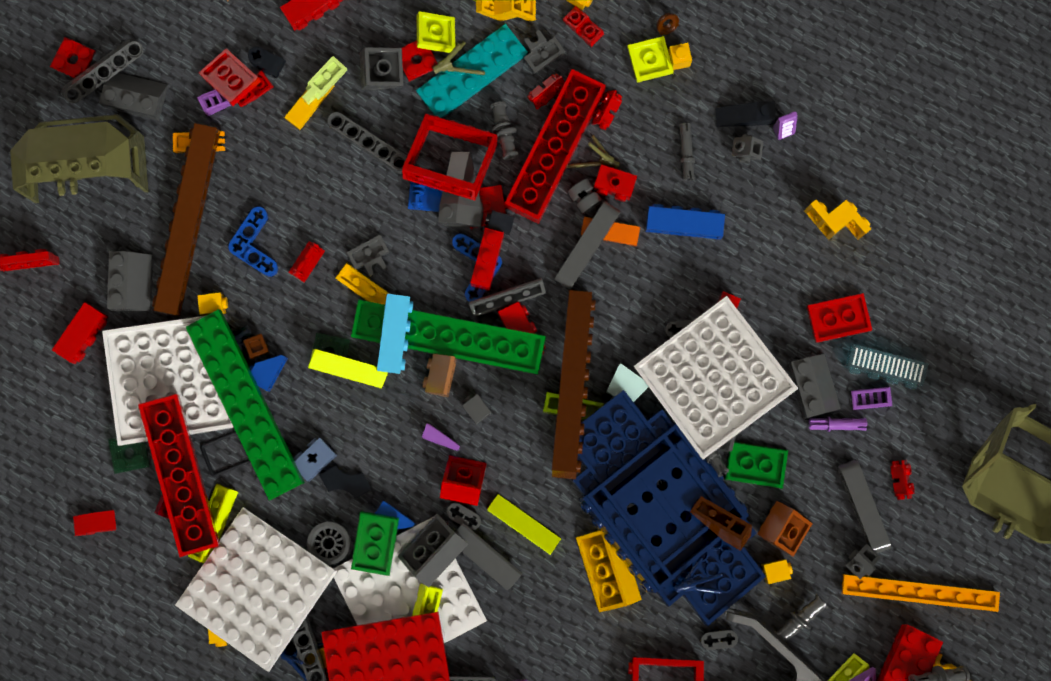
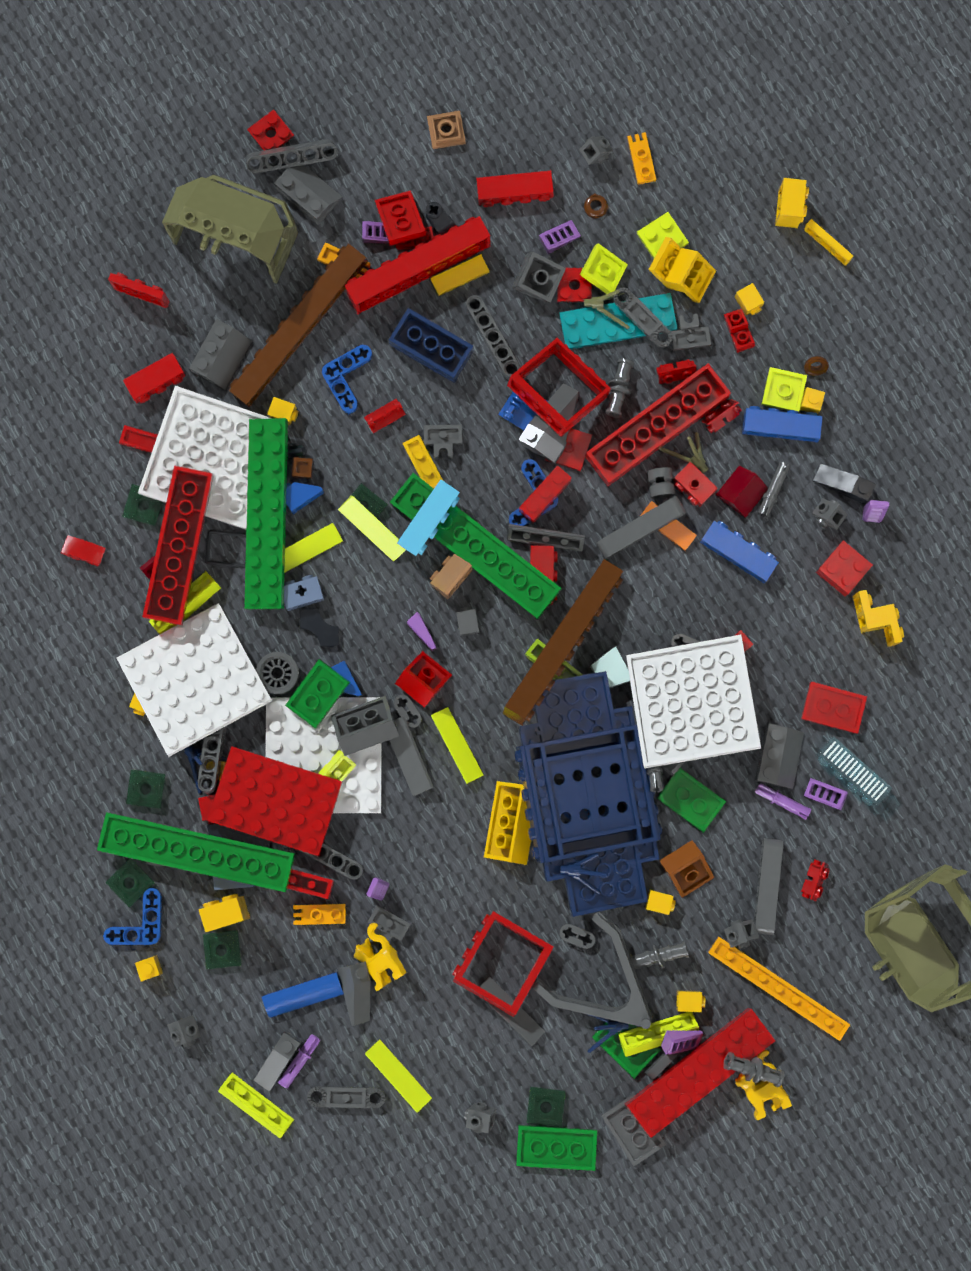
camera: 30 degrees right, 0 degrees up
(93, 395) = (138, 439): none -> red tile
(267, 111) = (418, 264): none -> red brick
(301, 413) = (311, 546): none -> neon yellow slope
(316, 177) = (431, 345): none -> dark blue brick
(324, 80) = (482, 262): yellowish green hinge -> none
(382, 31) = (550, 233): none -> medium lavender slope
(493, 57) = (642, 317): none -> dark grey plate
(499, 221) = (573, 467): black brick -> none
(659, 167) = (742, 491): none -> dark red slope
(665, 90) = (782, 424): none -> blue brick
(722, 523) = (632, 832): reddish brown slope -> none
(785, 190) = (844, 568): none -> red brick
(848, 645) = (690, 1001): none -> yellow brick

